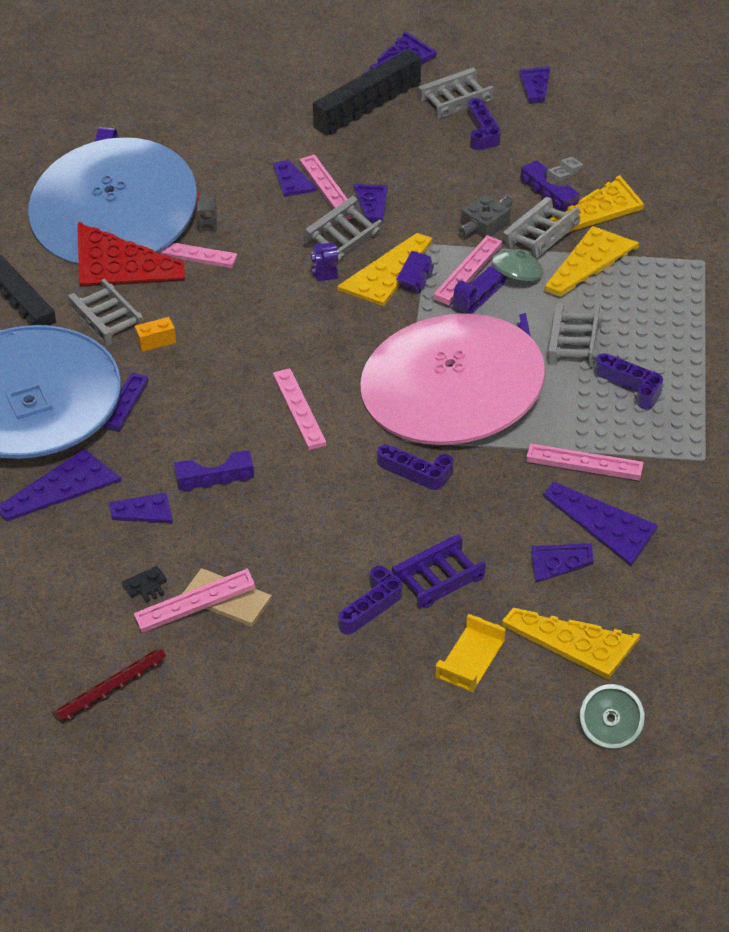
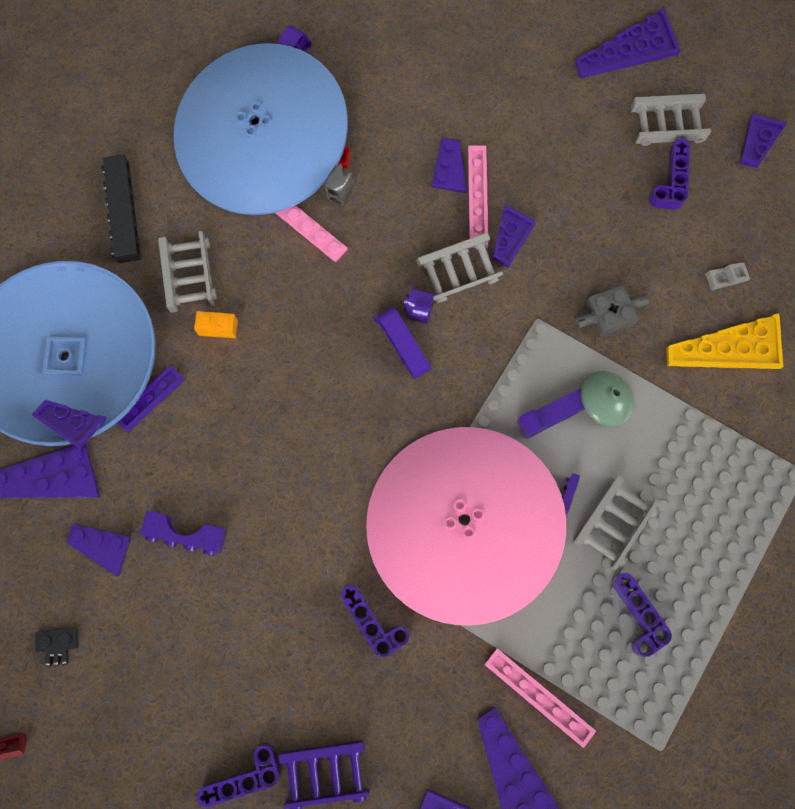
camera: 25 degrees right, 30 degrees up
(77, 424) = (69, 423): none -> dark purple wing
(120, 261) = (226, 210): red wing -> none
(194, 600) = (82, 698): bright pink plate -> none
(241, 608) = (118, 699): tan tile -> none
(299, 409) = (304, 485): bright pink plate -> none
(323, 287) = (402, 341): none -> dark purple beam
(366, 92) = (579, 83): black brick -> none
(378, 280) = (471, 343): yellow wing -> none
(415, 272) = (503, 358): dark purple hinge -> none
(468, 268) = (556, 378): bright pink plate -> none
(535, 176) = (702, 318): dark purple arch -> none
(535, 217) = (659, 336): light grey fence -> none
(591, 255) = (691, 417): yellow wing -> none

